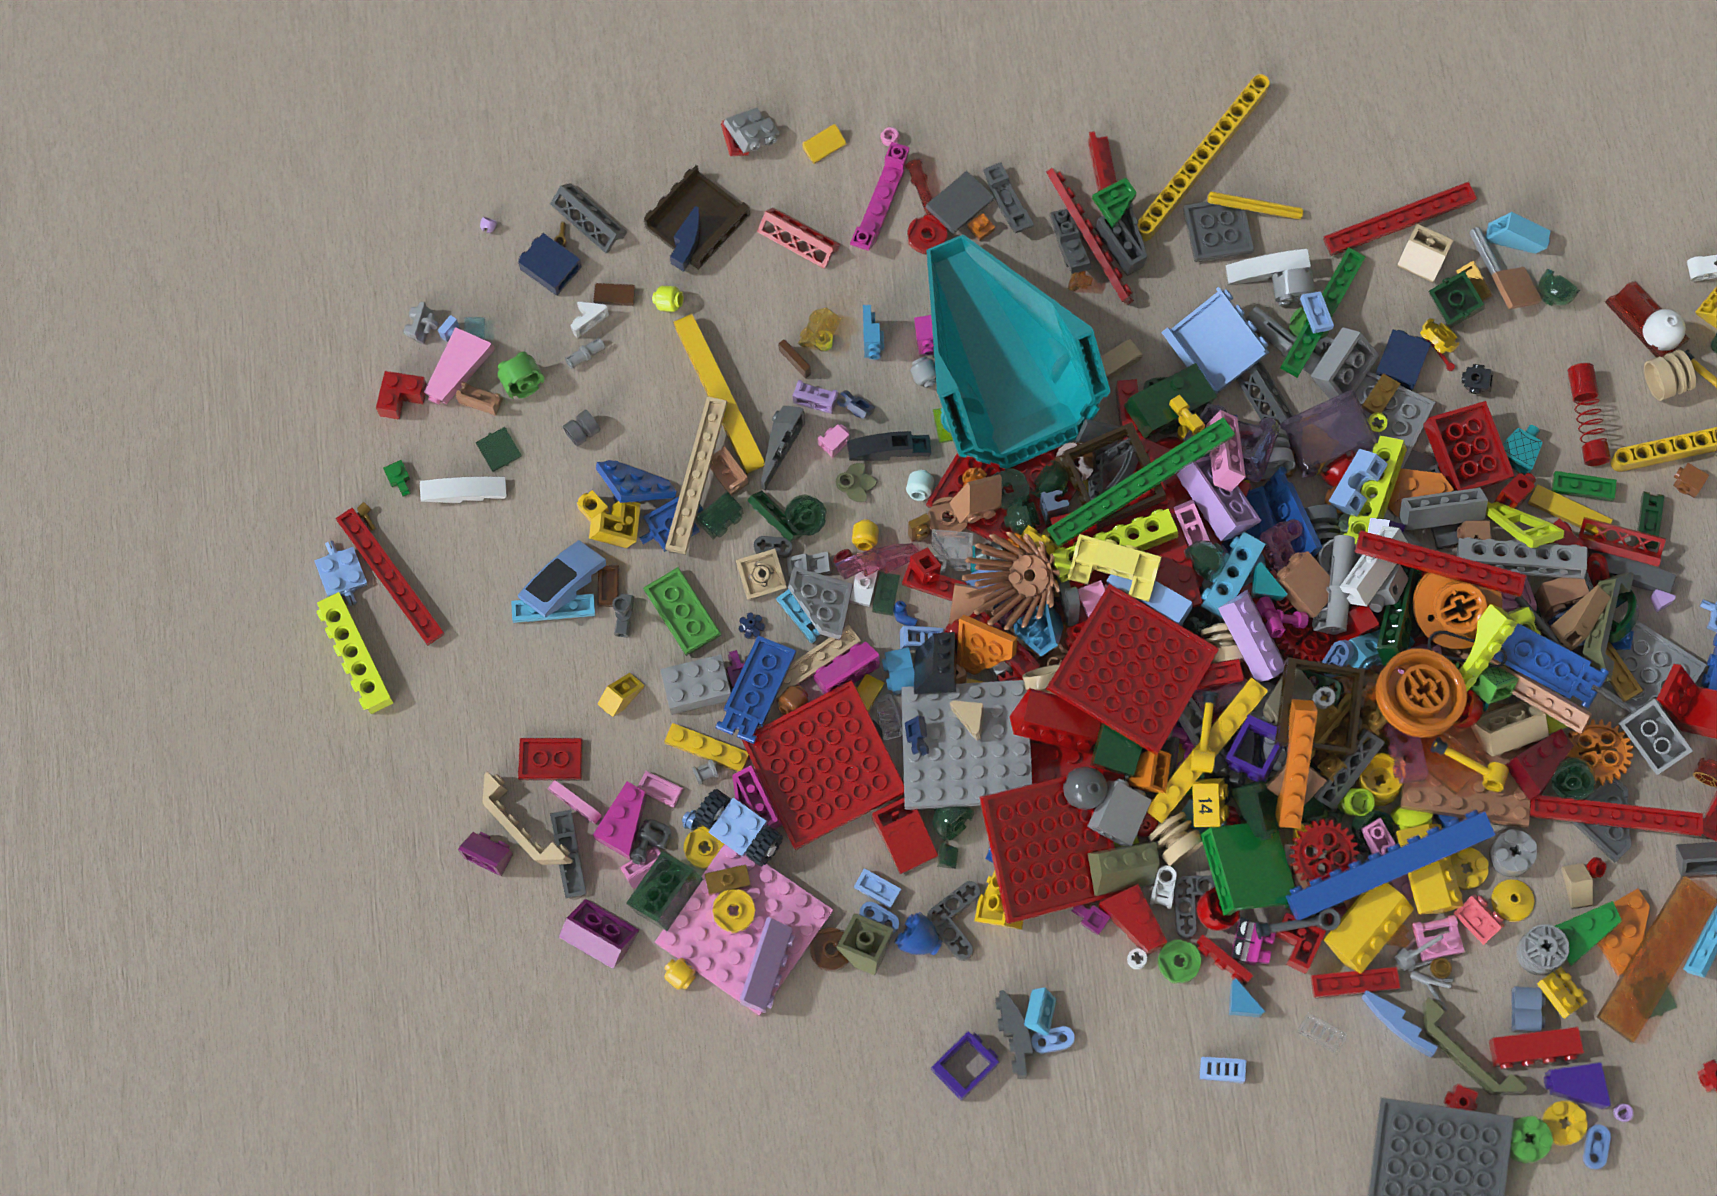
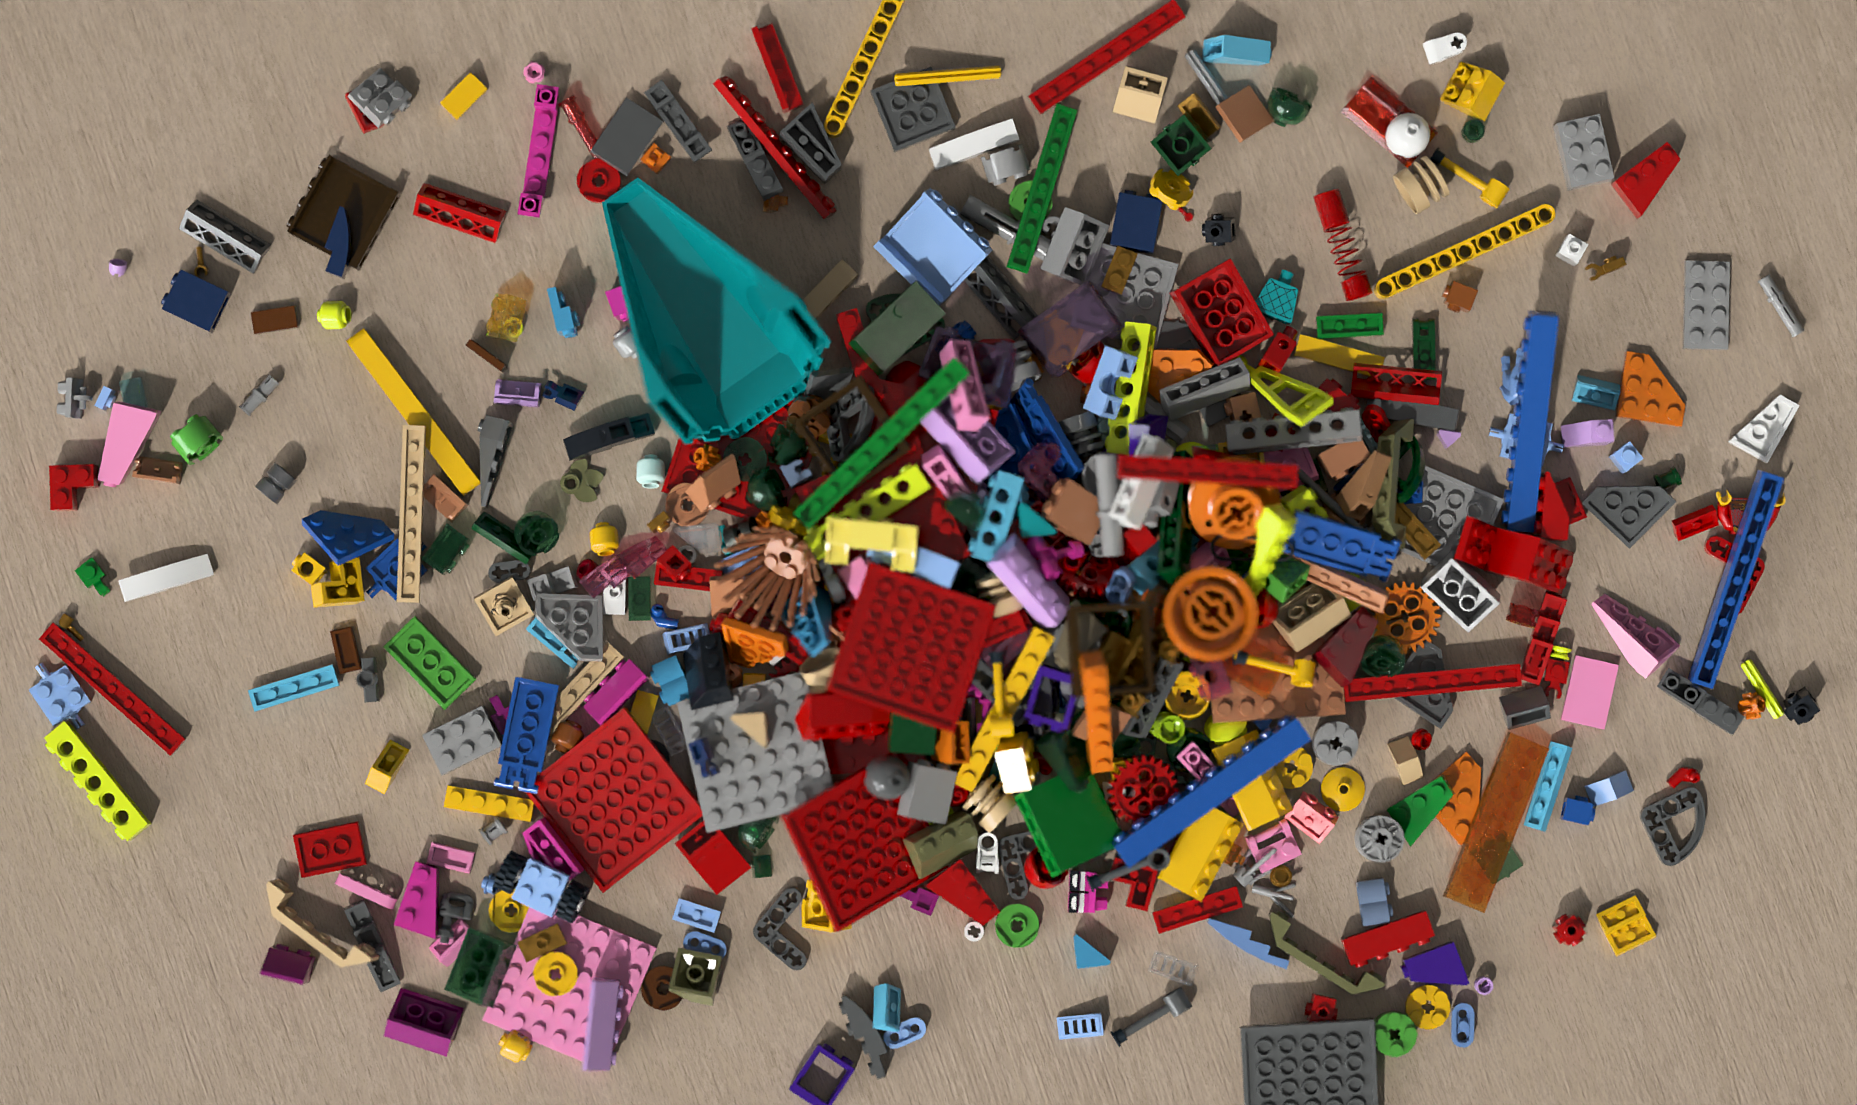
camera: 15 degrees left, 15 degrees up
(498, 449) = (192, 522): clear green piece -> none
(562, 578) = (295, 656): medium blue slope -> none
(592, 315) = (257, 351): white slope -> none
(751, 625) = (511, 661): dark blue plant -> none
(834, 440) = (549, 439): bright pink brick -> none
(919, 936) = (748, 957): blue piece -> none
(1115, 200) = (794, 107): green wing -> none
(1186, 419) = (917, 350): yellow bar -> none
(1223, 960) = (1061, 916): red plate -> none
(1317, 312) = (1034, 194): light blue plate -> none
(1319, 1066) = (1175, 1002): none -> dark grey piece
(1321, 692) = (1118, 643): light grey bush -> none
(1380, 416) = (1123, 297): neon yellow bush -> none
(1559, 995) = (1402, 881): yellow plate -> none

